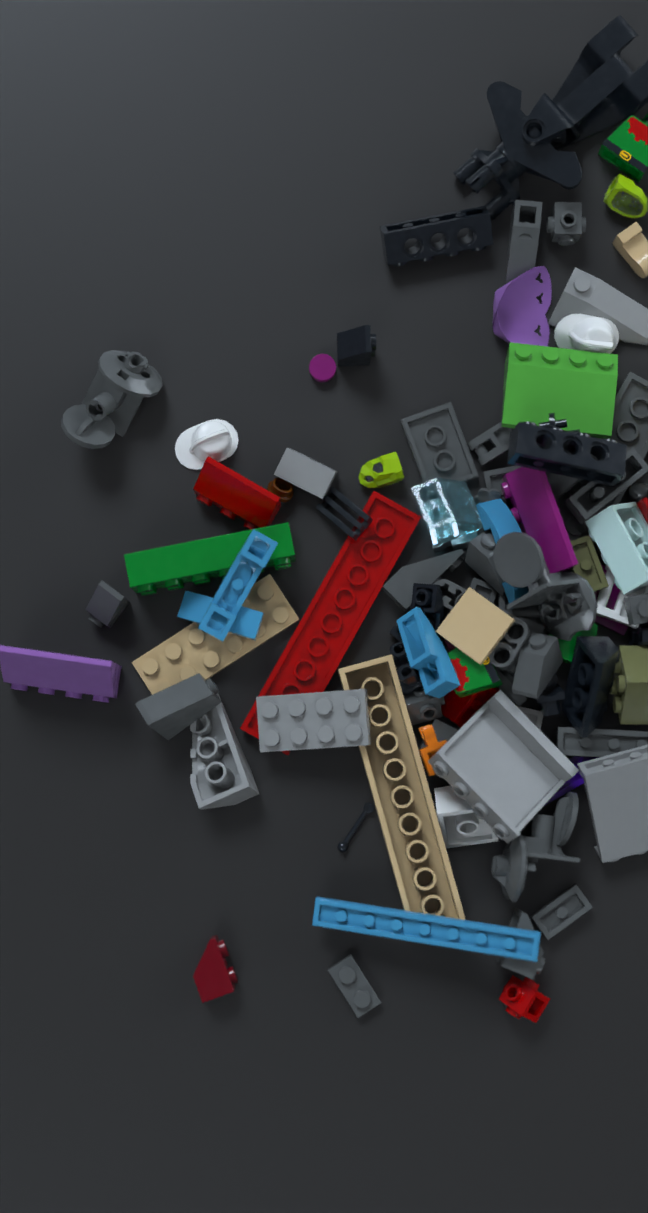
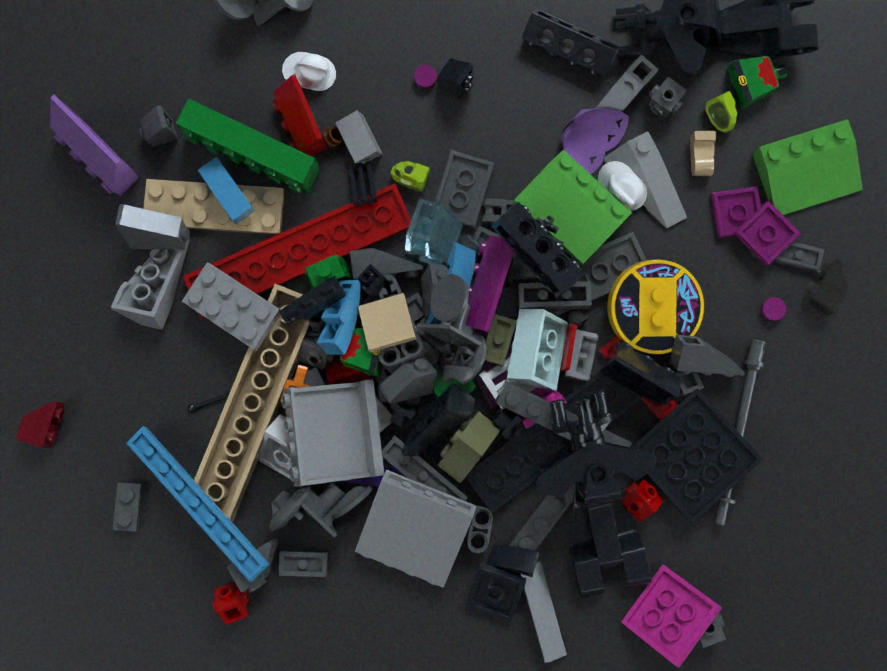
camera: 45 degrees right, 0 degrees up
(237, 584) = (246, 174): dark azure slope -> none
(376, 625) = (327, 268): none -> green torso
(391, 657) = (313, 301): none -> black hinge

